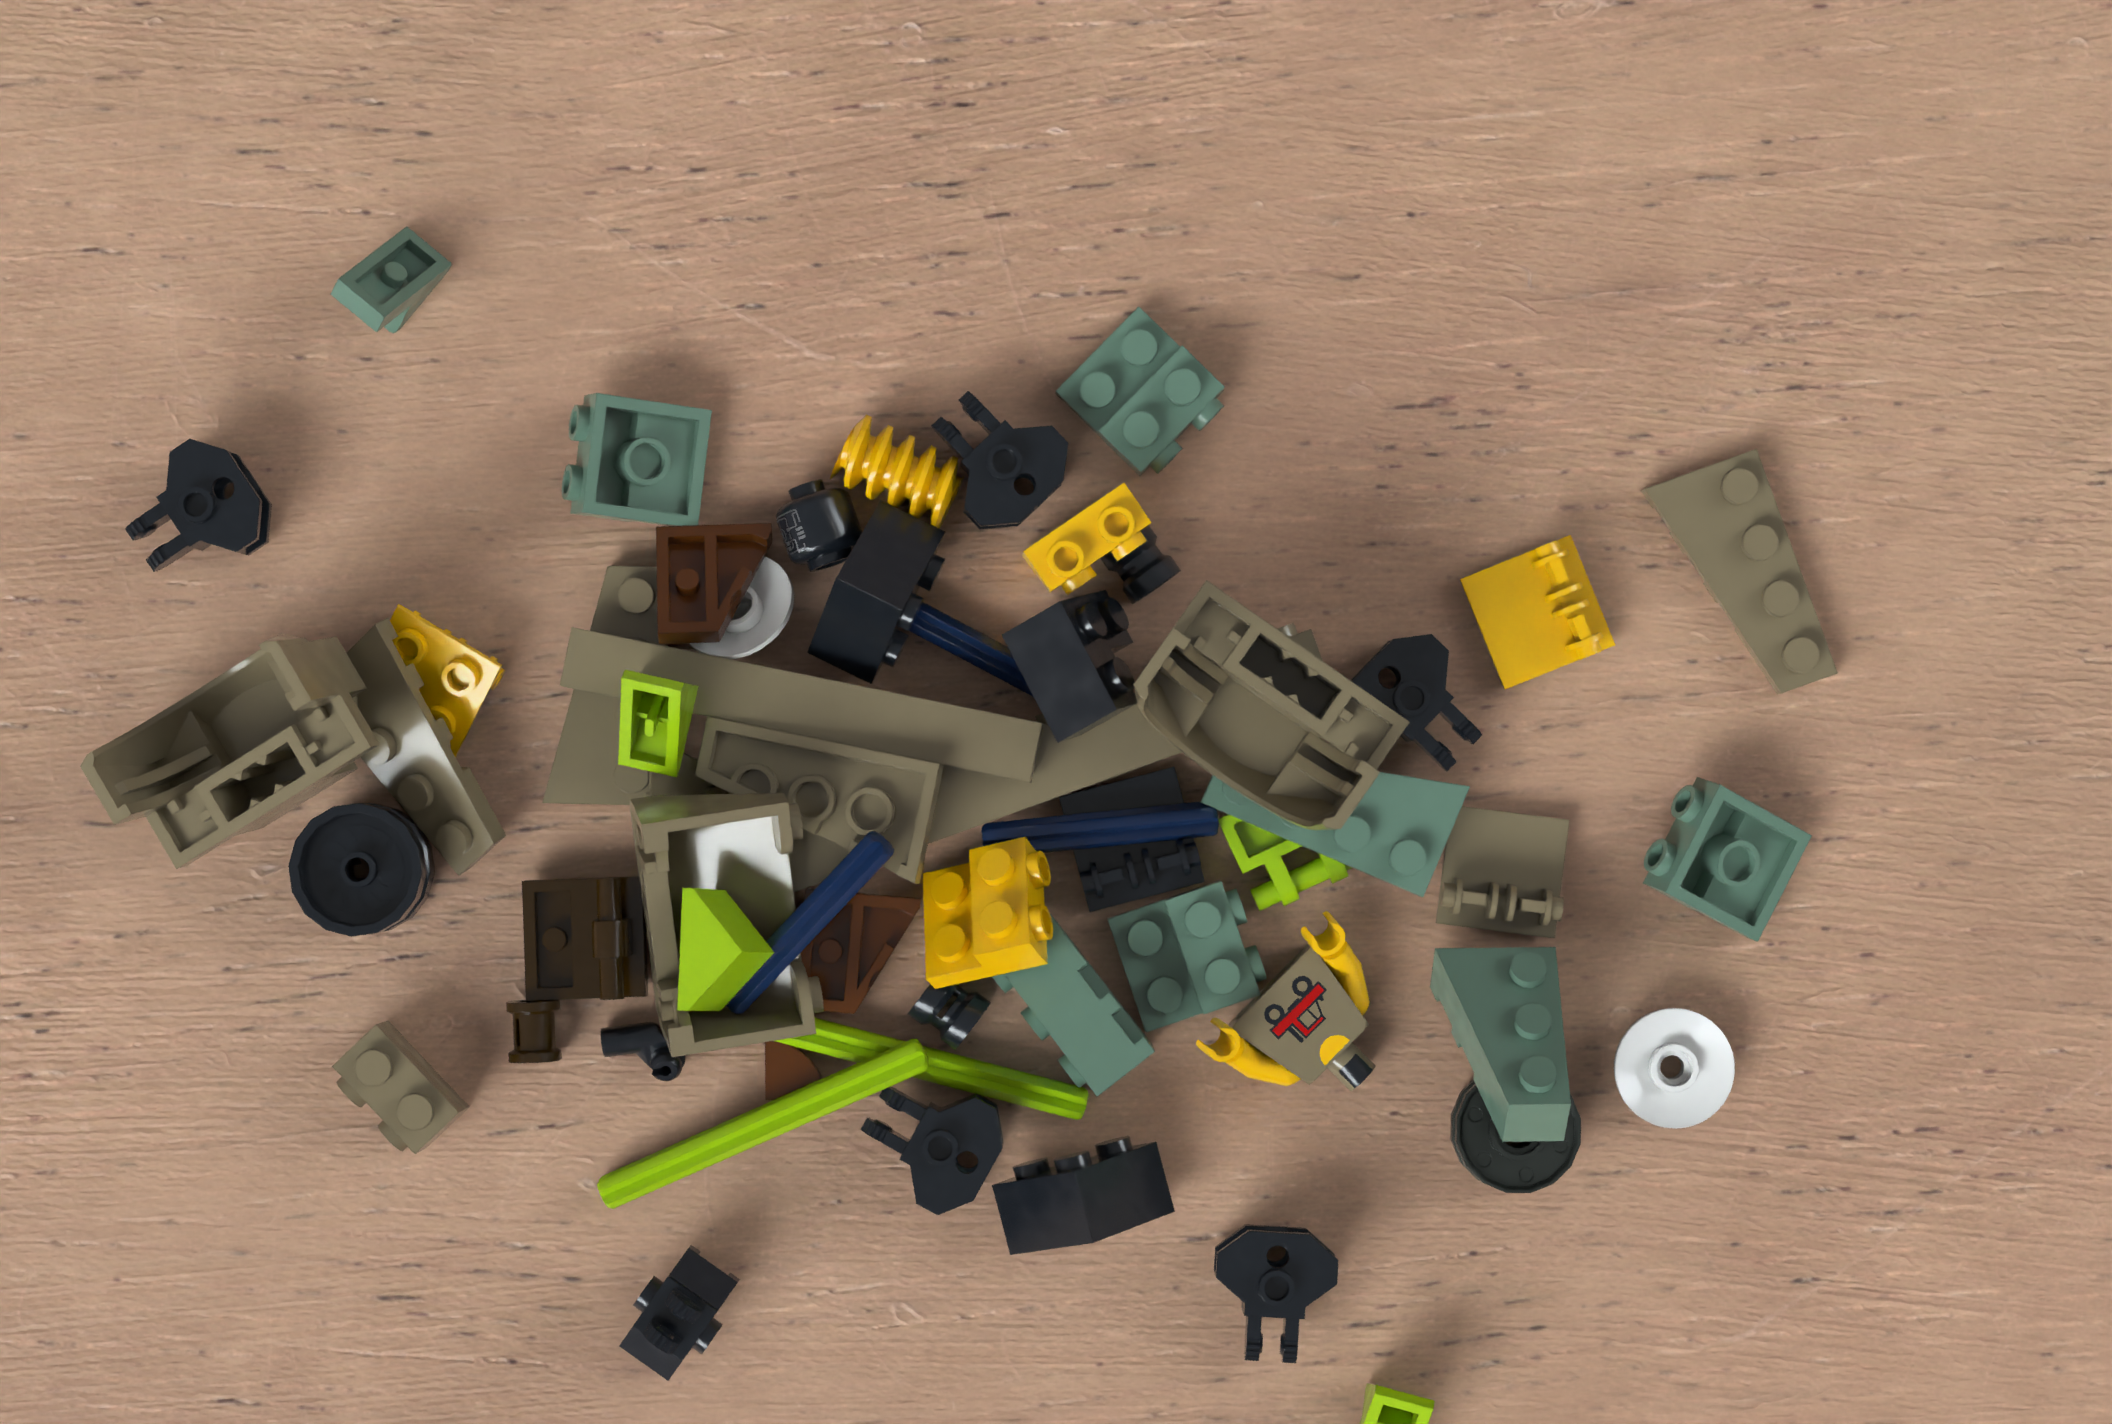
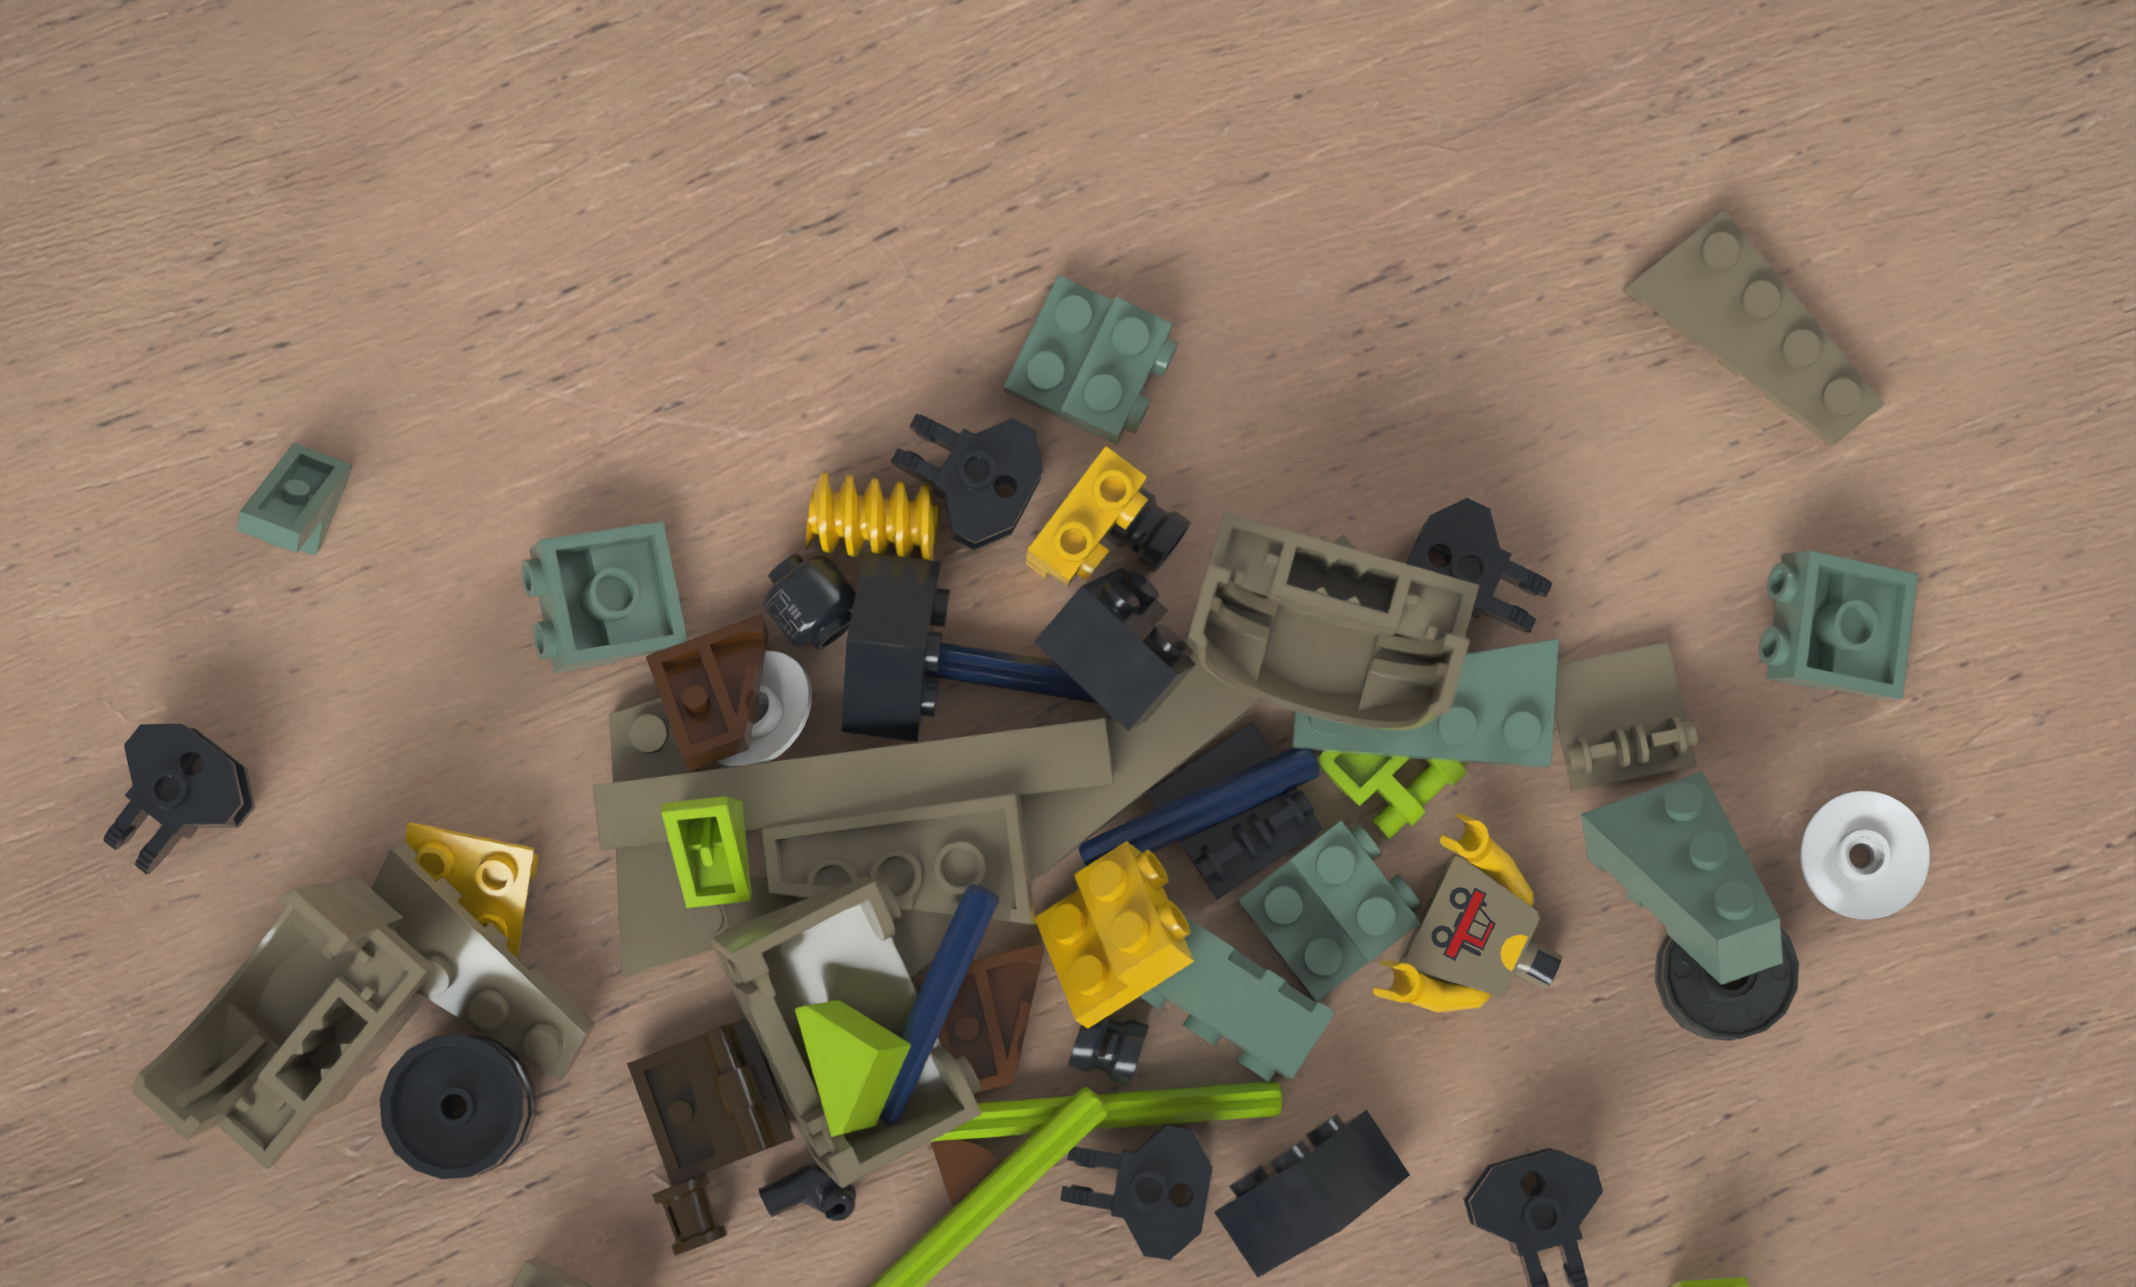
camera: 20 degrees left, 5 degrees down
(1537, 612) = (1563, 444): yellow hinge -> none

